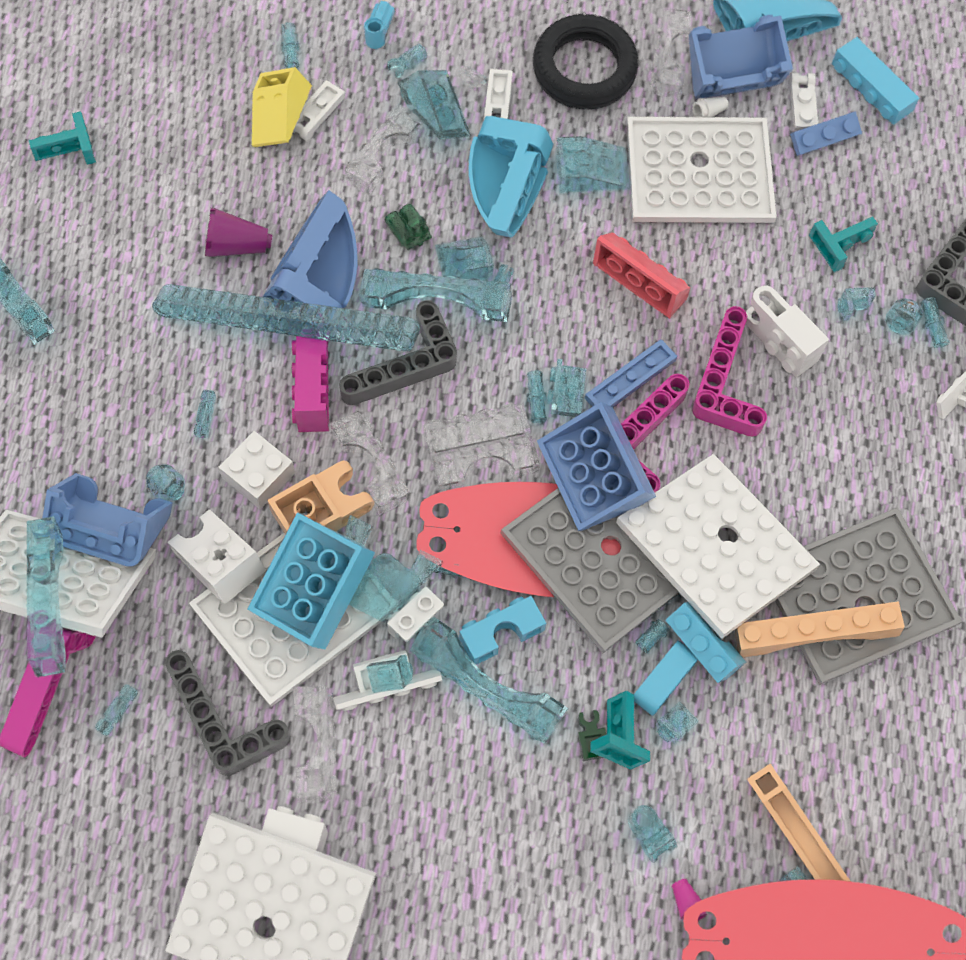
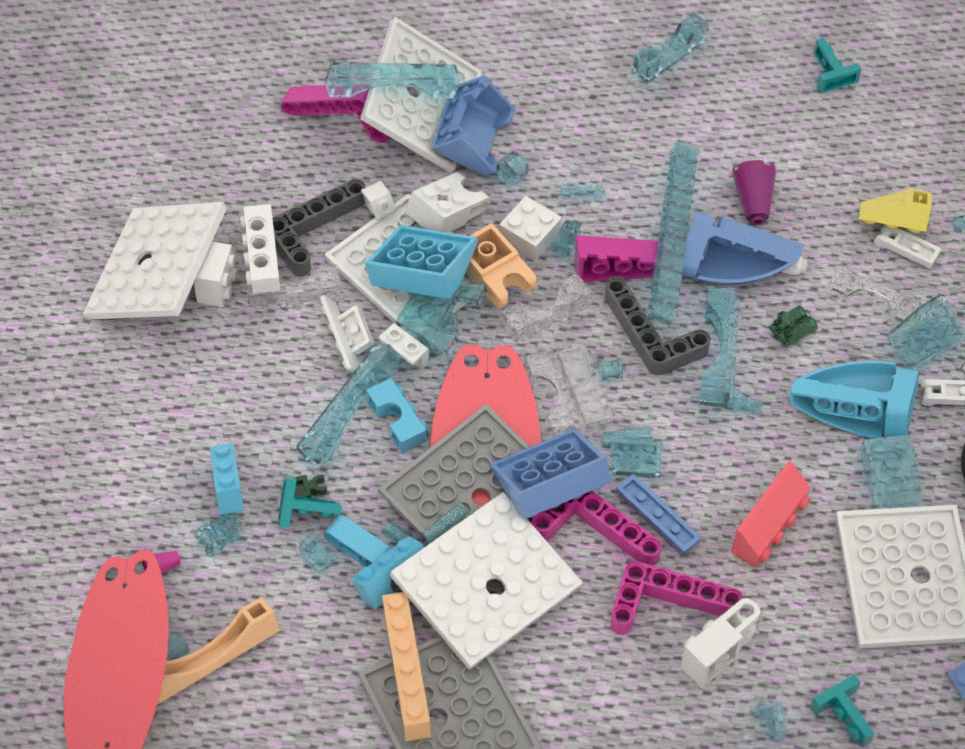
camera: 90 degrees right, 10 degrees down
(116, 710) = (319, 159): clear light blue axle -> none
(201, 634) = (378, 200): none -> white brick
(226, 768) = (263, 261): none -> white brick
(280, 429) = (566, 239): none -> clear light blue piece
(390, 674) = (349, 330): clear light blue bracket -> none
(451, 403) = (610, 368): none -> clear light blue bush
(466, 259) = (765, 375): clear light blue slope -> none
(595, 817) = (226, 479): none -> medium azure arch
(653, 580) = (444, 523): none -> clear light blue pin

